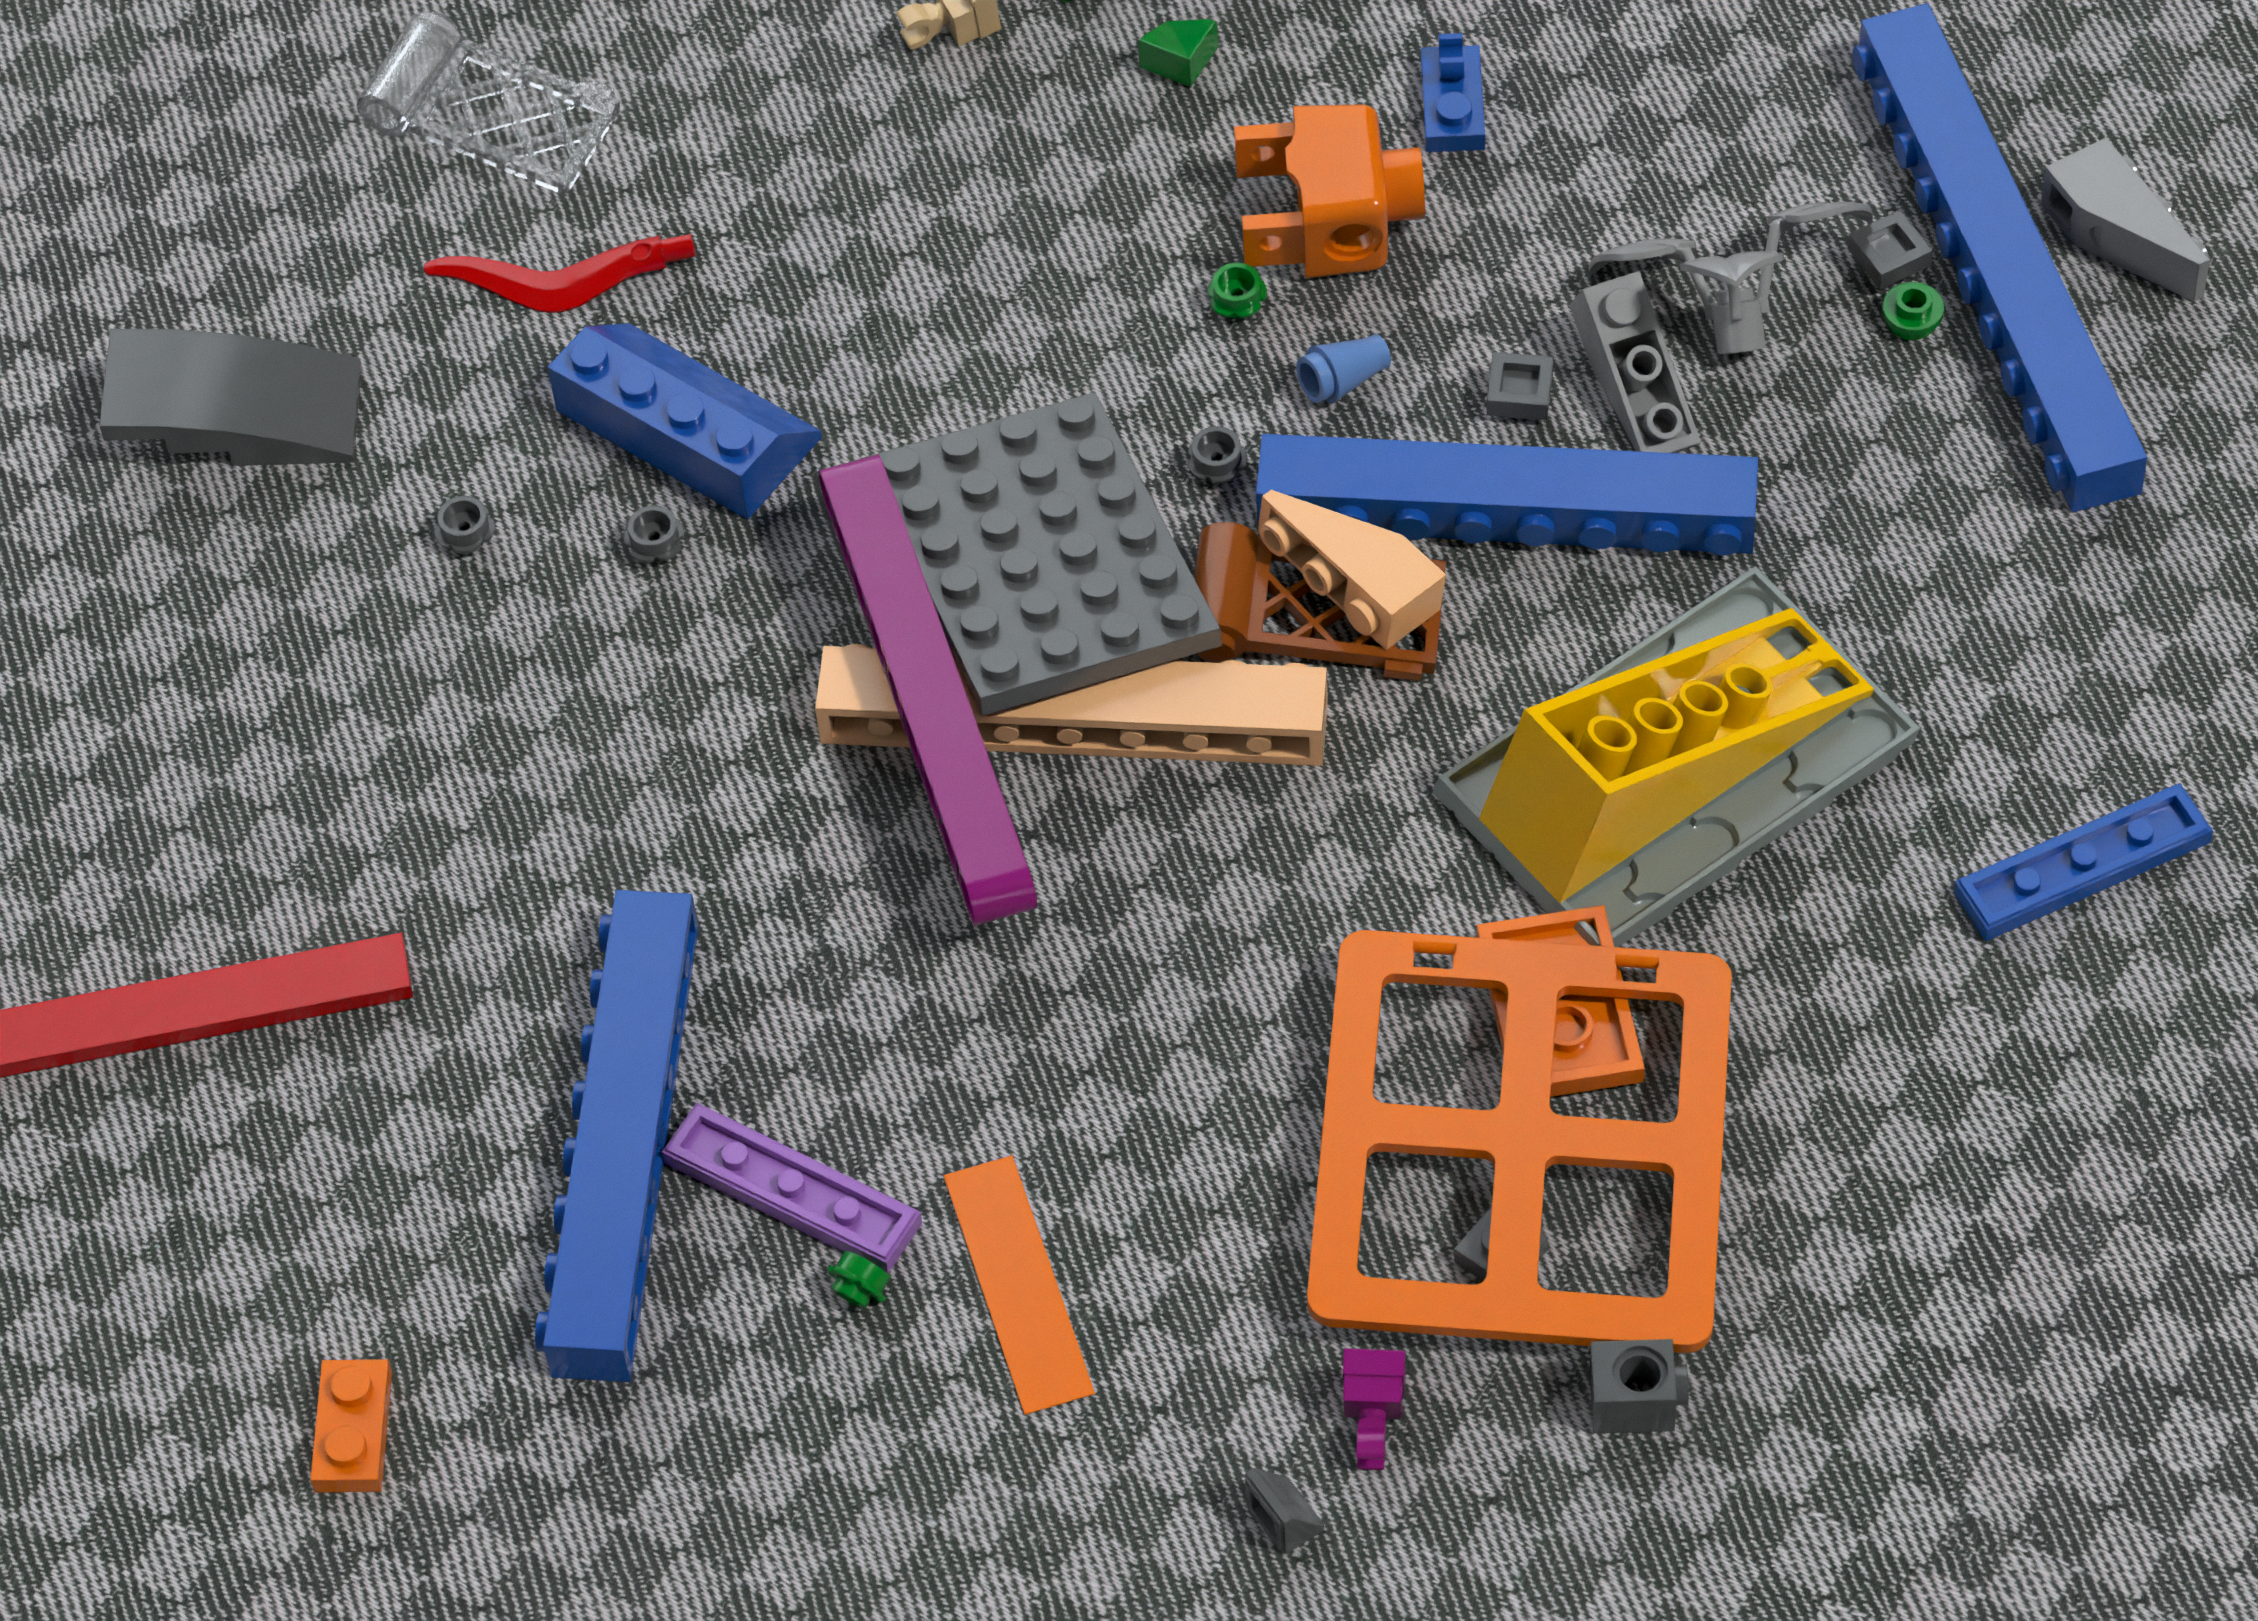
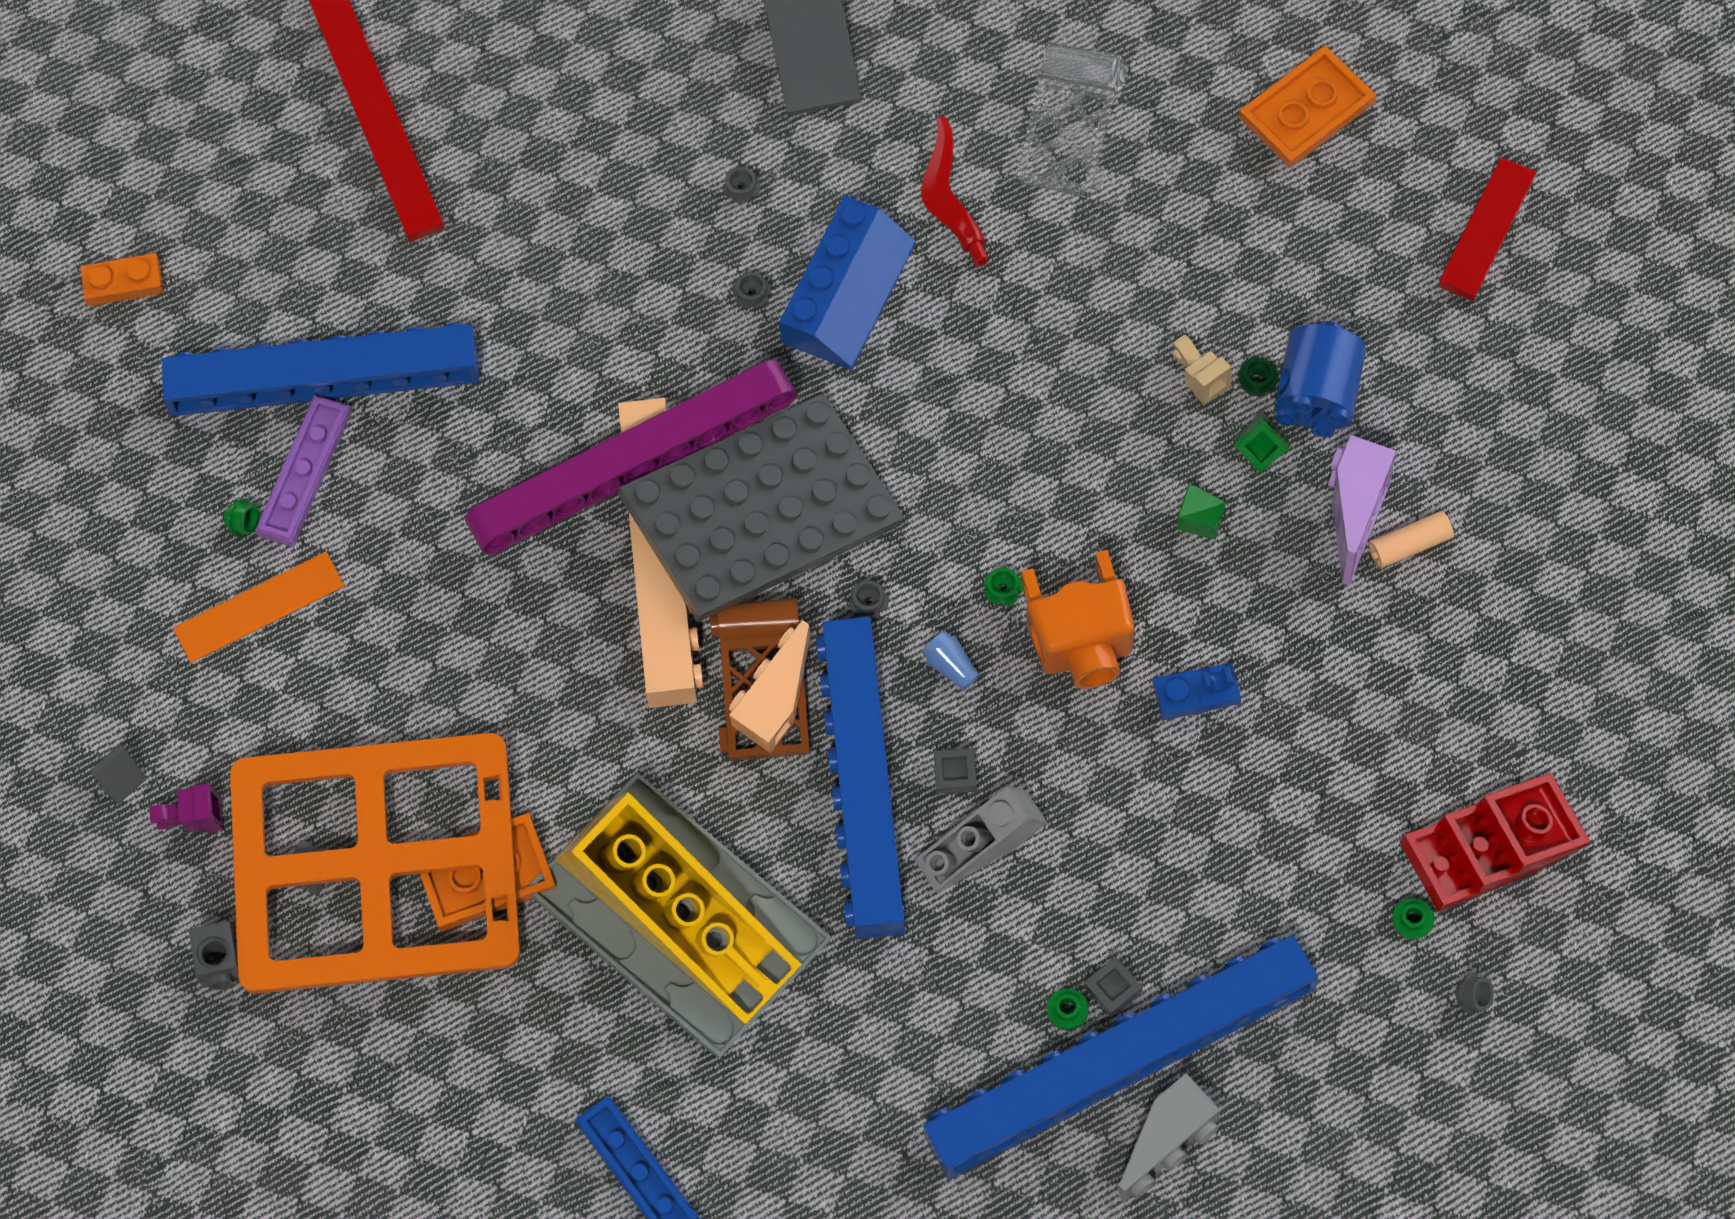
camera: 80 degrees right, 10 degrees up
(1737, 312) = (1028, 890): light grey plant -> none

